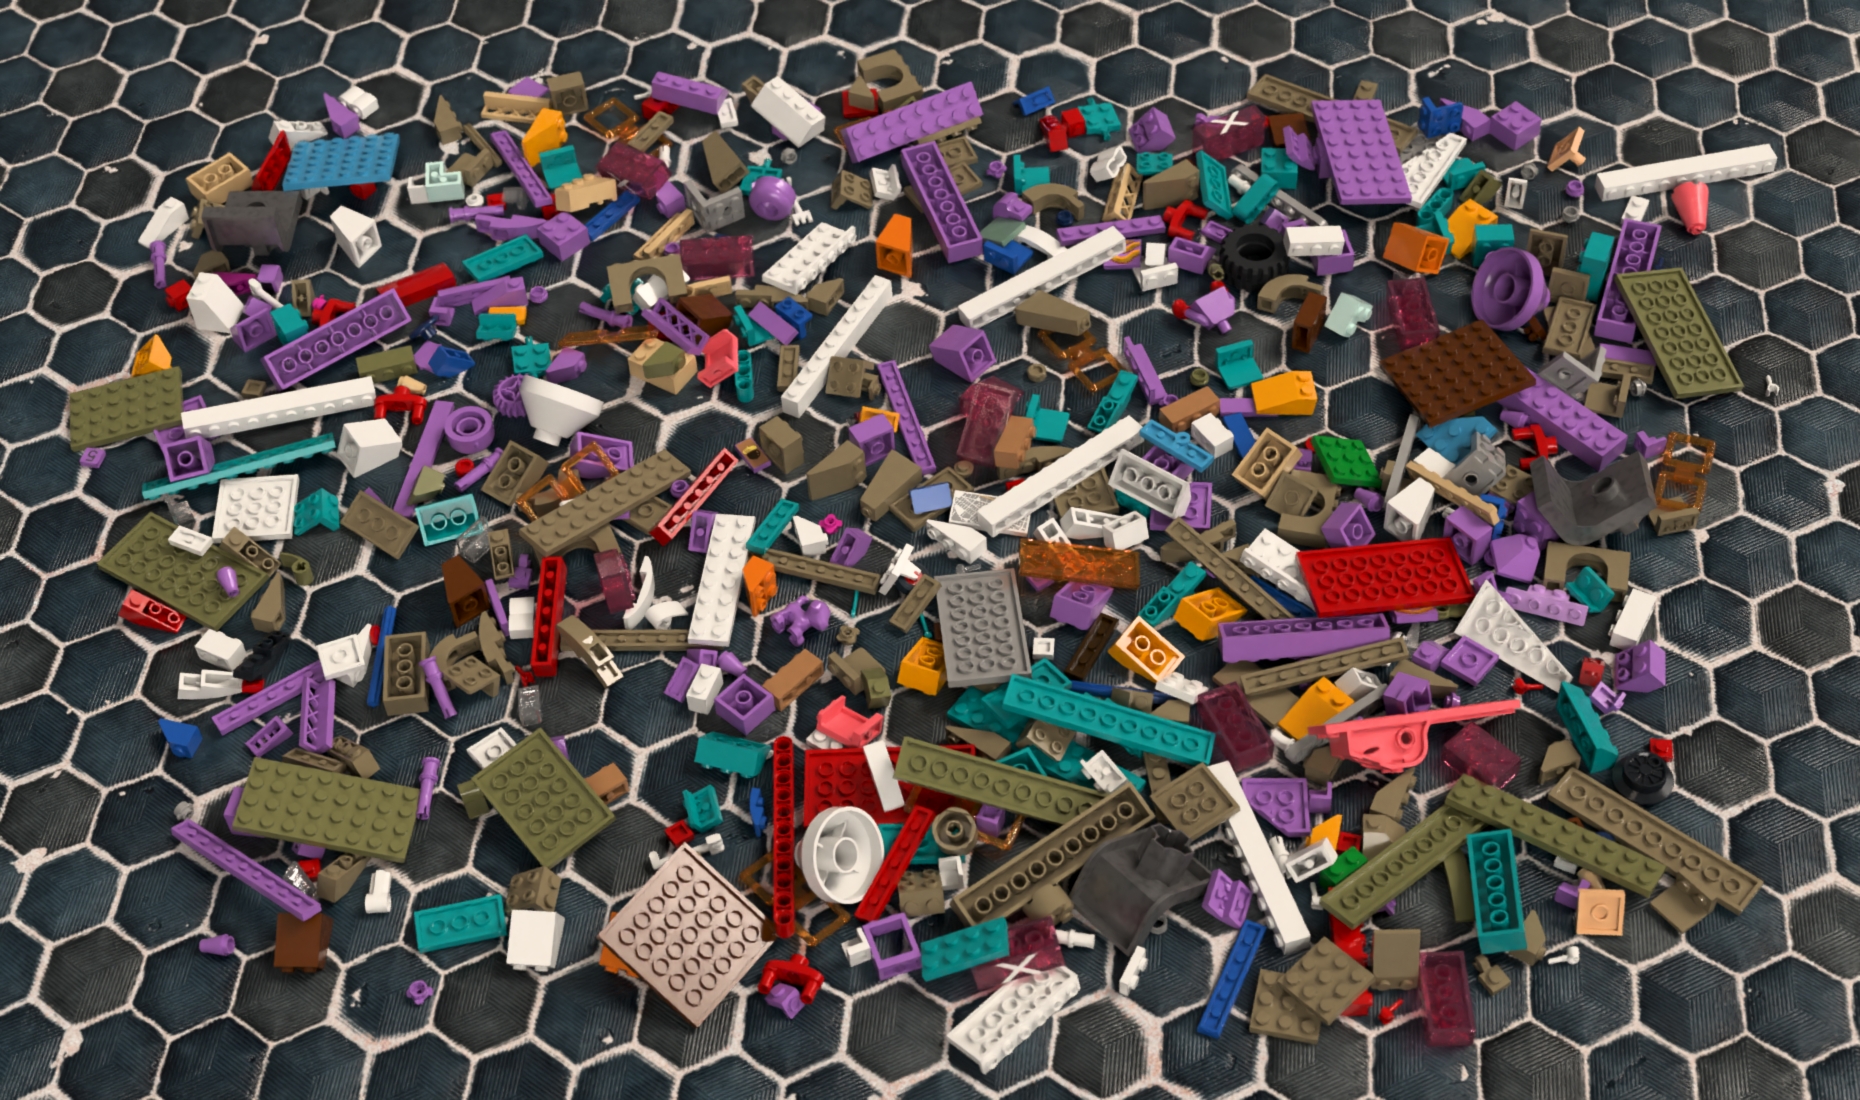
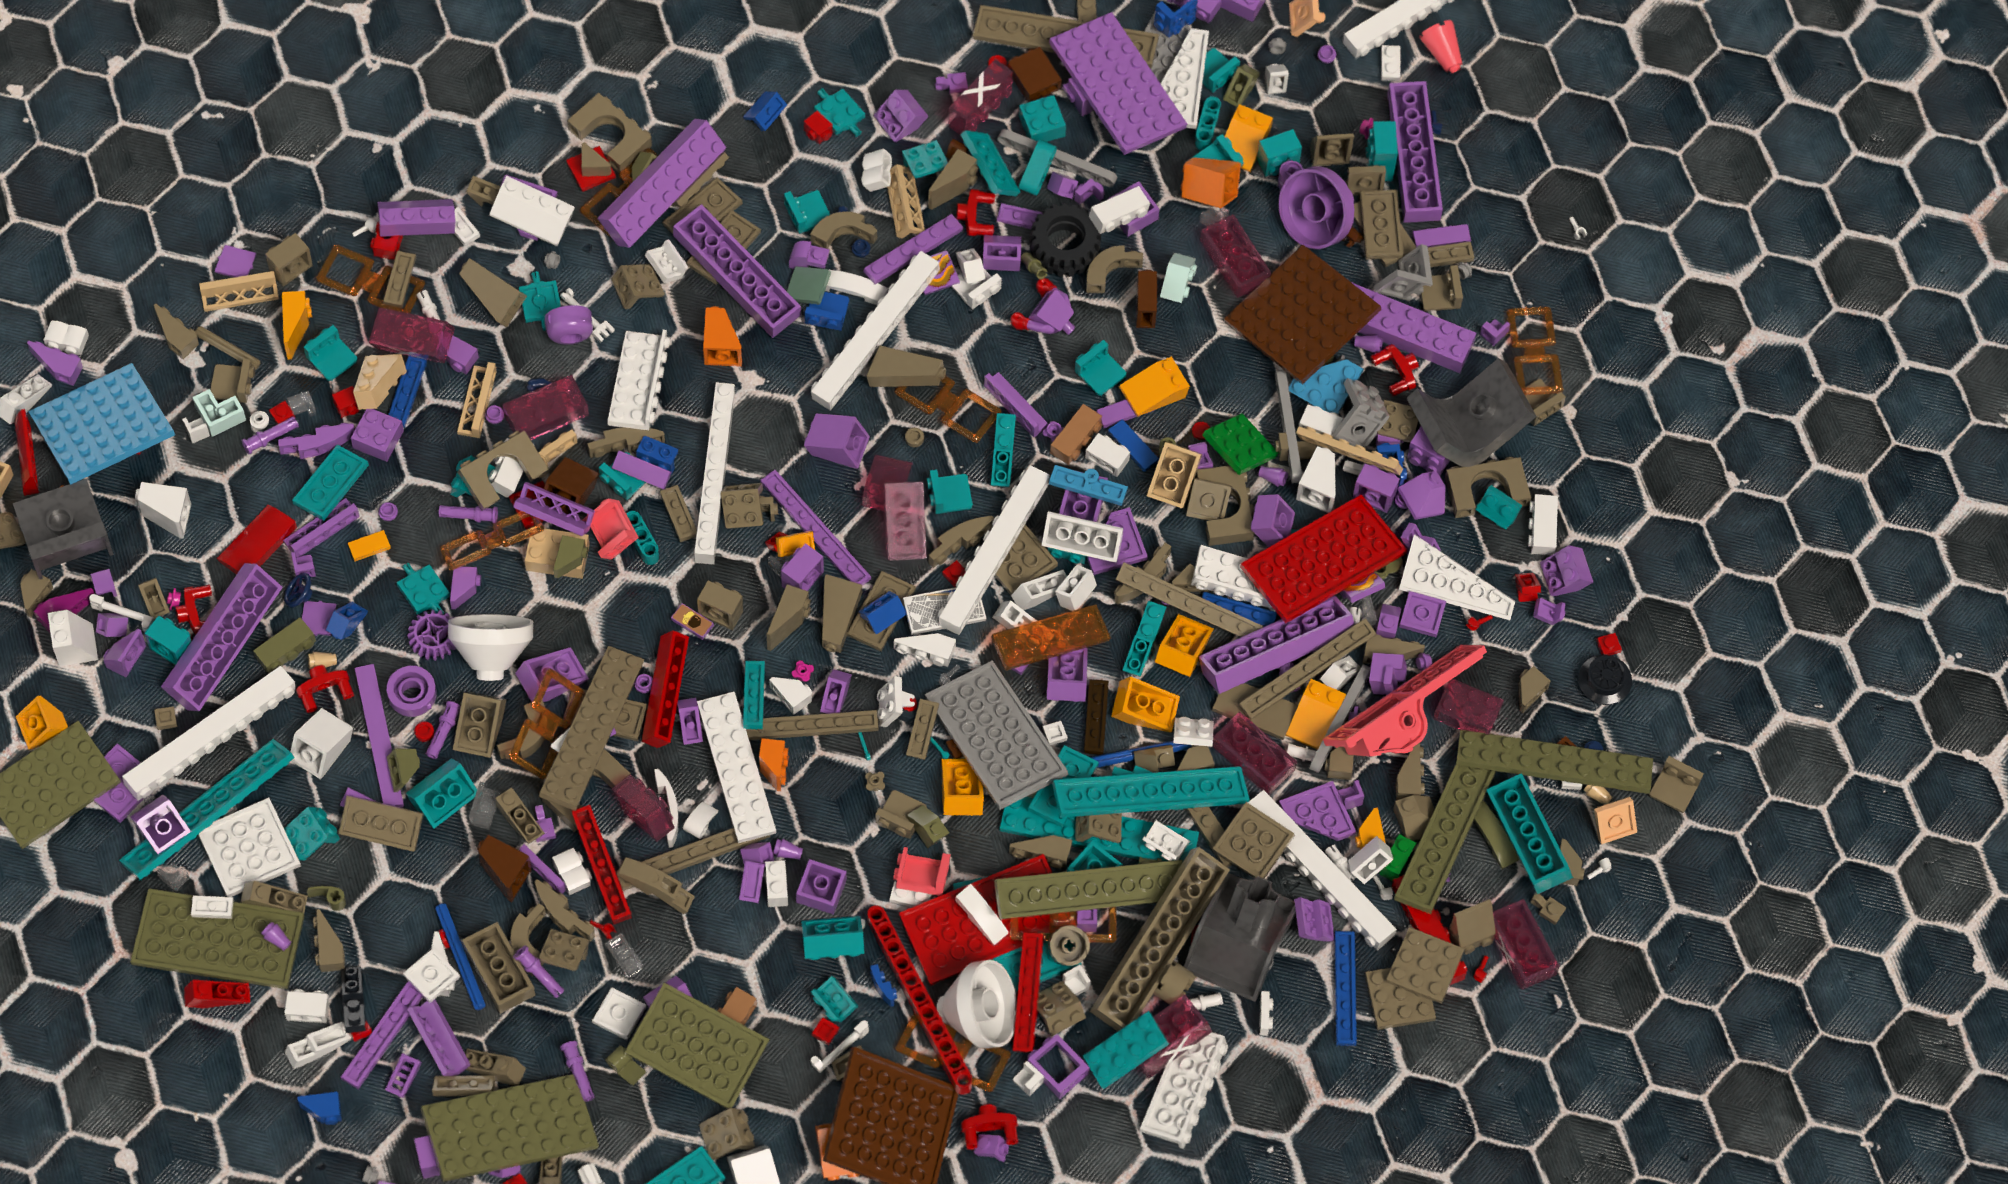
camera: 30 degrees left, 15 degrees up
(92, 457) = (48, 849): medium lavender tile -> none
(177, 295) = (23, 636): red brick -> none
(497, 326) = (369, 564): teal bracket -> none
(505, 294) = (353, 527): medium lavender slope -> none
(521, 169) = (290, 368): medium lavender tile -> none
(712, 212) = (514, 362): light grey bracket -> none
(794, 678) = (849, 843): medium nougat brick -> none
(815, 616) = (840, 774): medium lavender animal -> none
(825, 296) = (673, 419): dark tan slope -> none
(964, 468) = (896, 568): dark tan plate -> none
(996, 169) = (767, 204): medium lavender plate -> none
(1014, 442) = (939, 530): medium nougat brick -> none
(1054, 133) = (804, 146): red slope -> none
(1199, 377) = (1068, 392): olive plate -> none
(1241, 186) = (1014, 153): white pin -> none
(1299, 148) = (1057, 96): medium lavender slope -> none
(1346, 841) = (1391, 829): red plate -> none
(1548, 604) = (1467, 531): lavender bracket -> none
(1568, 894) = (1585, 809): medium lavender panel -> none
(1570, 214) = (1333, 83): light grey plate -> none
(1585, 728) = (1543, 648): teal slope -> none
(1654, 838) = (1632, 733): dark tan plate -> none
(1678, 333) = (1481, 201): olive plate -> none

